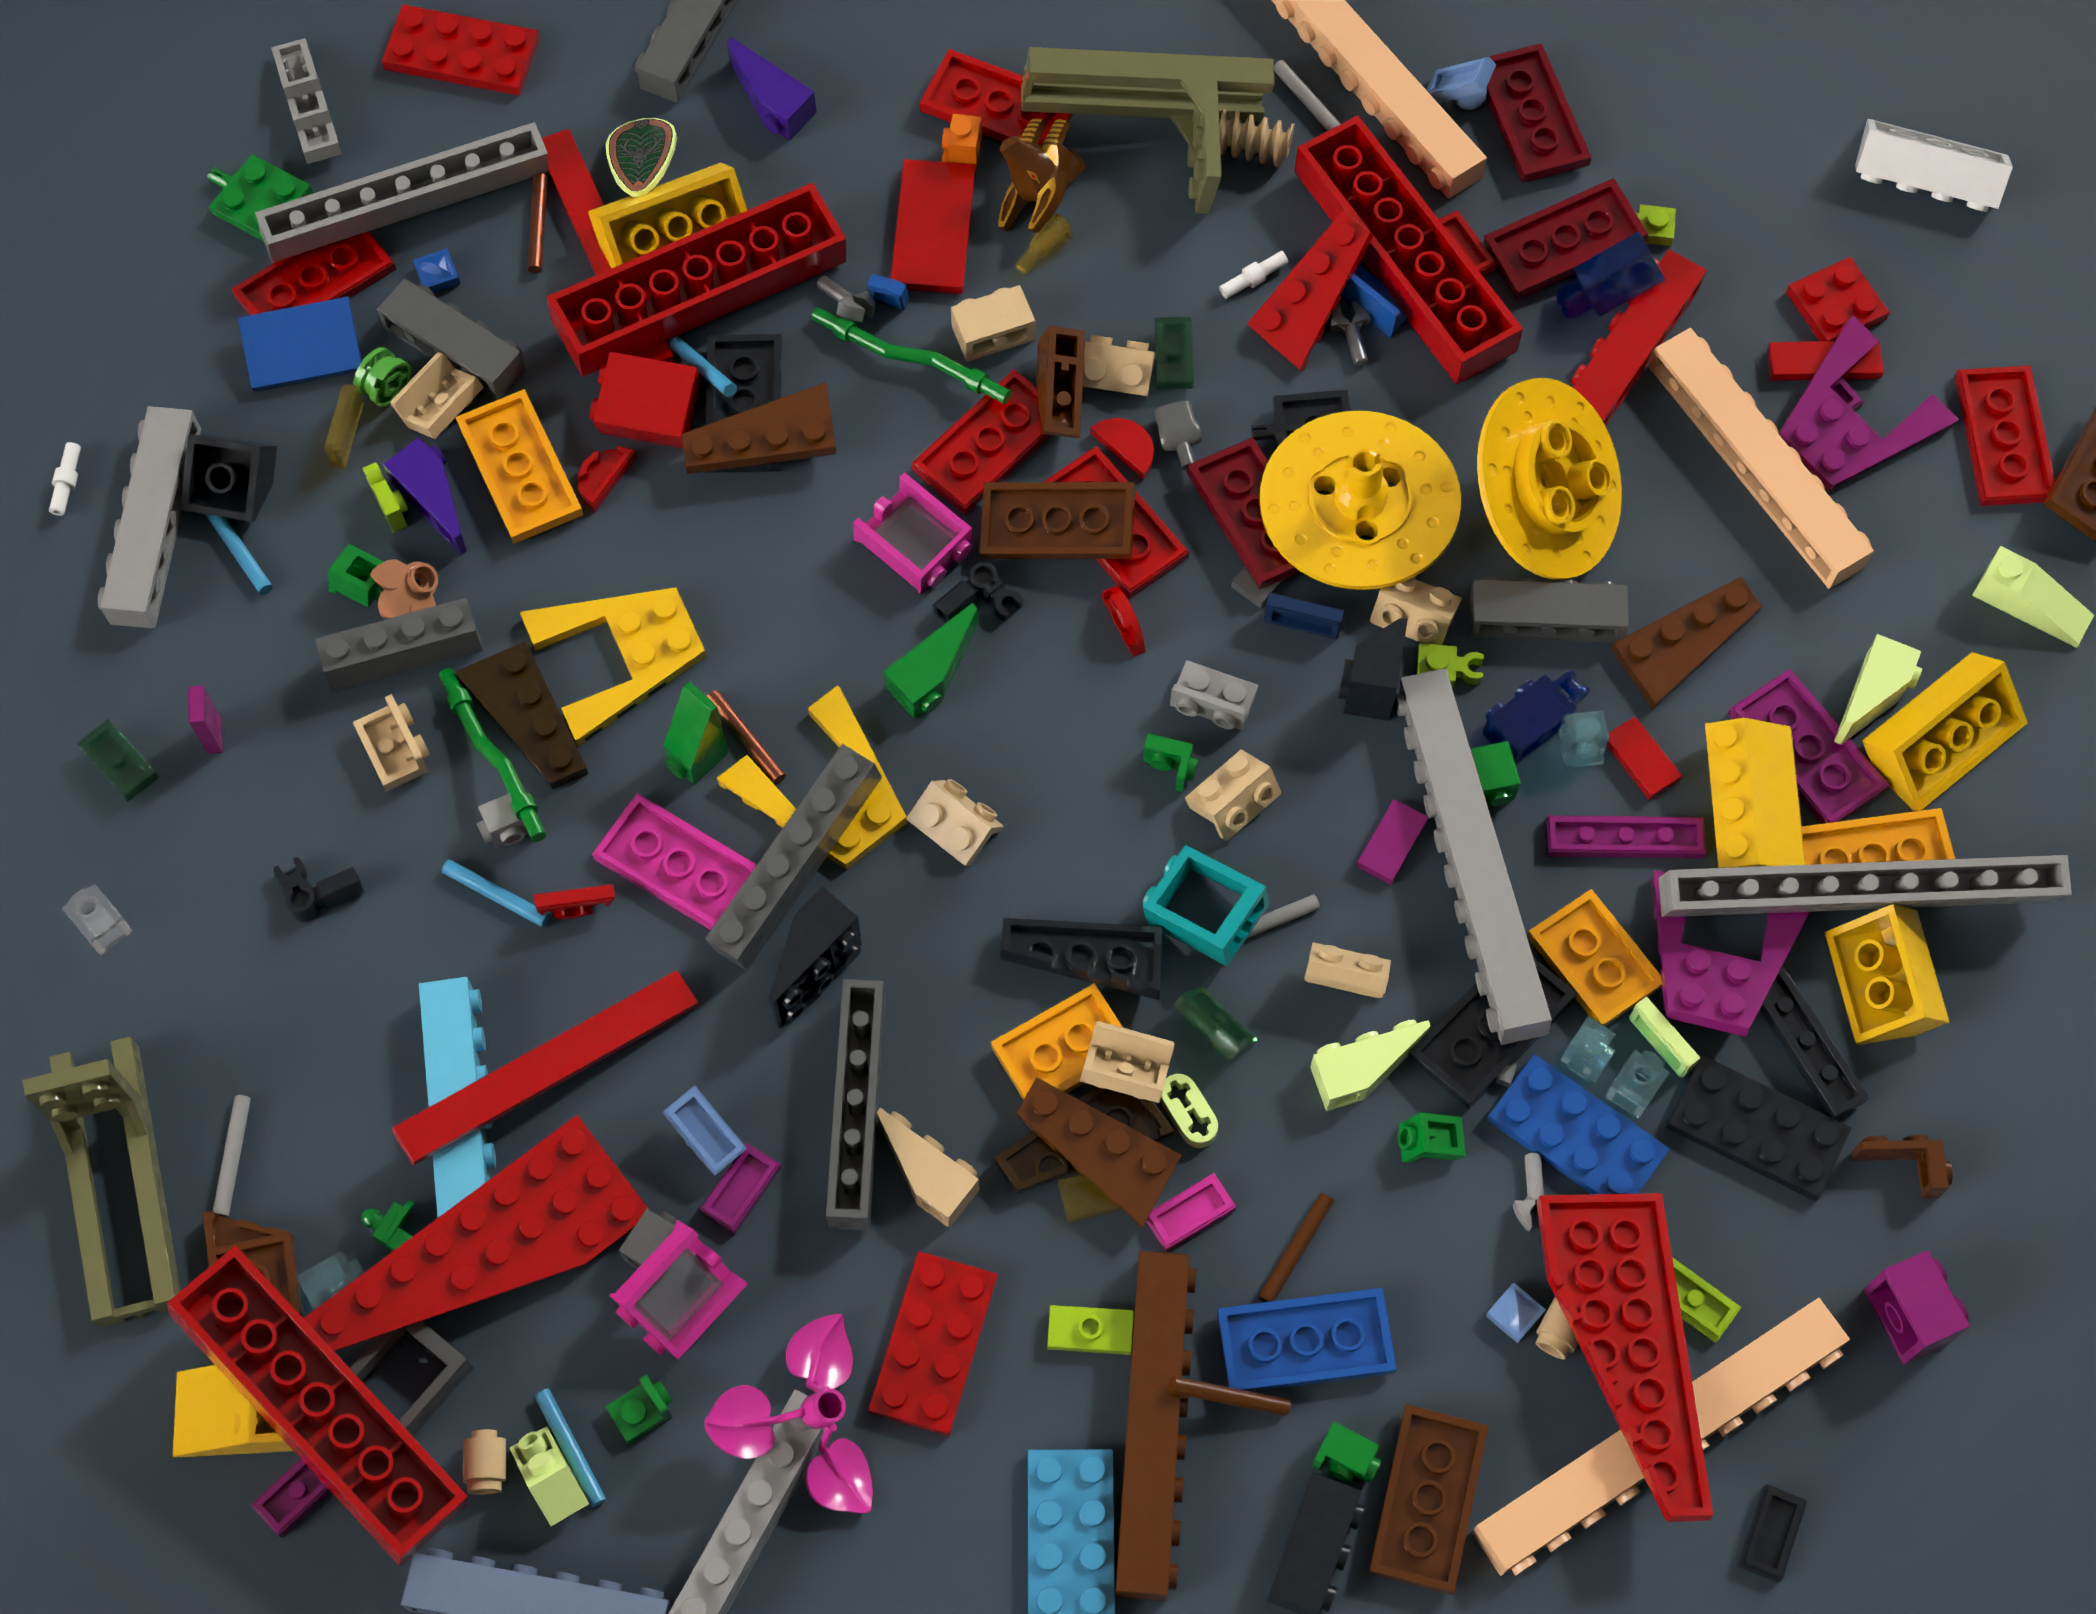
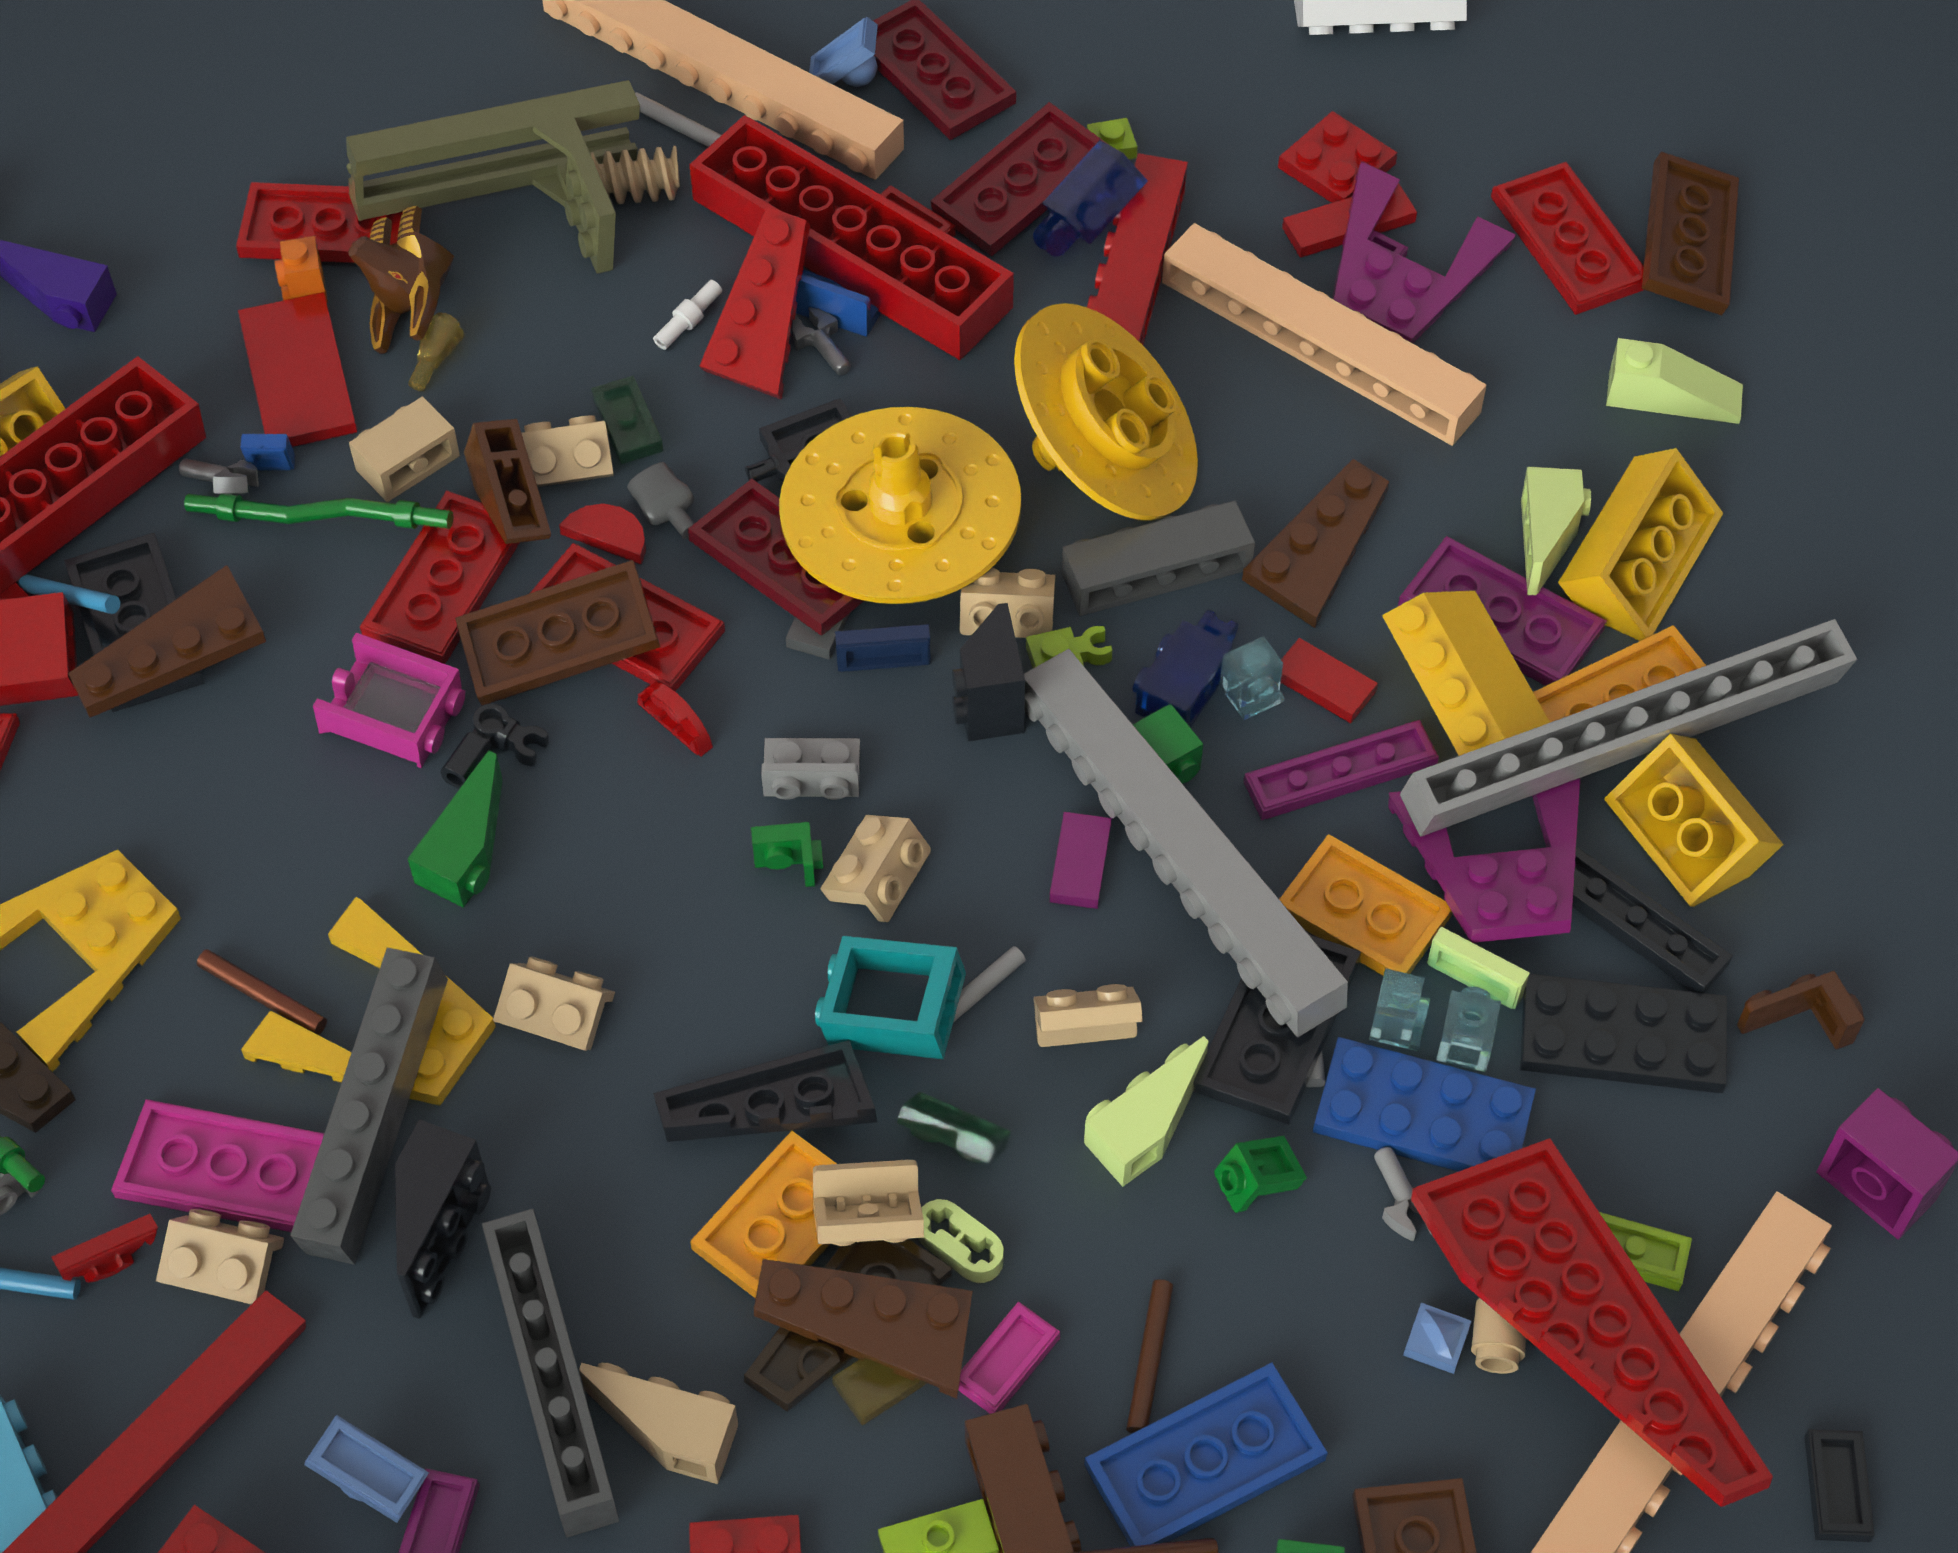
camera: 20 degrees left, 10 degrees down
(651, 931) = (217, 1256): none -> tan bracket
(694, 736) = (198, 1002): green slope -> none

